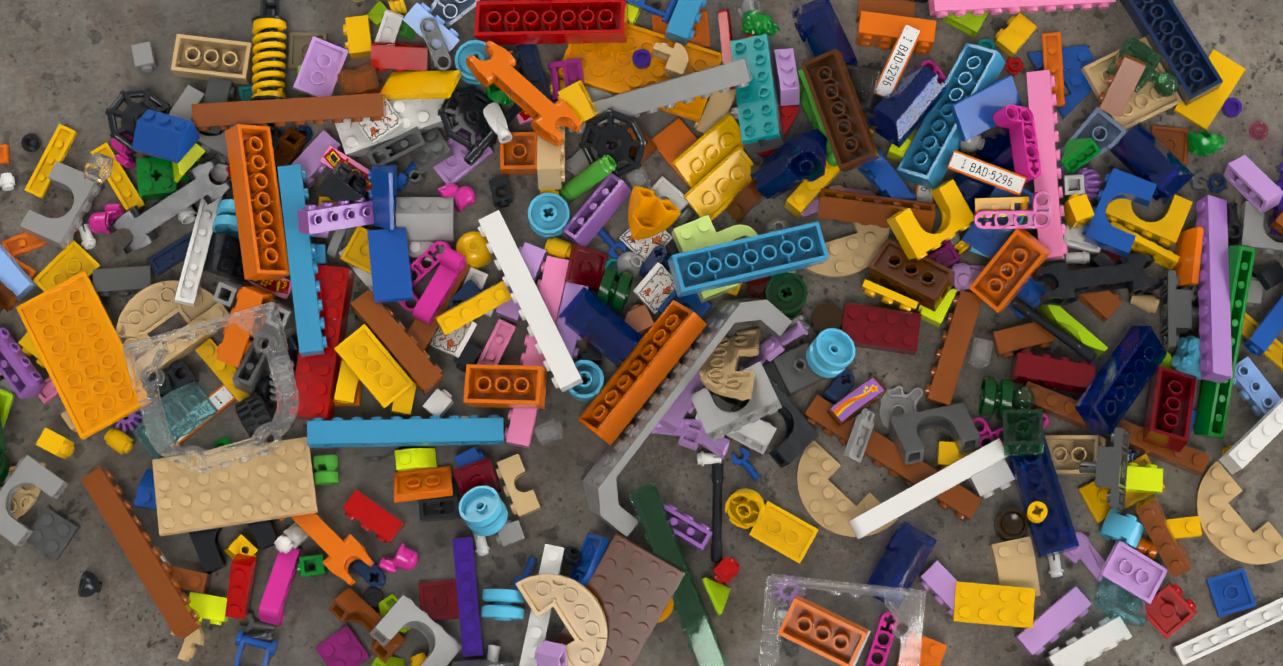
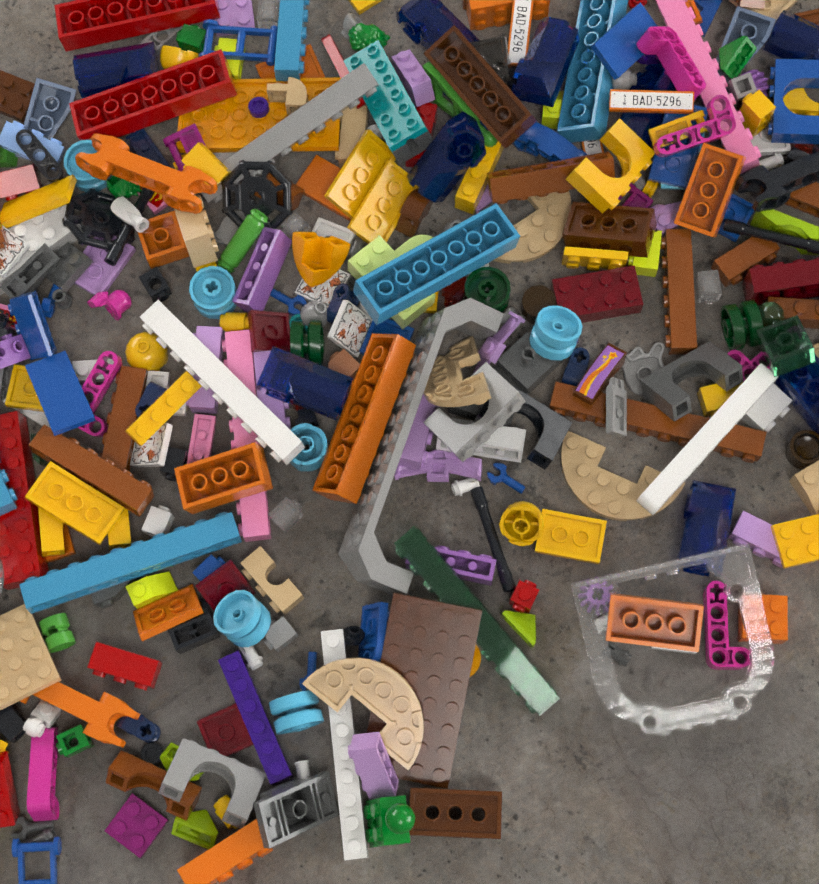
camera: 15 degrees left, 5 degrees down
(404, 559) = (172, 700): dark pink piece -> none
(426, 218) = (84, 335): light grey slope -> none
(440, 285) = (126, 374): dark pink beam -> none

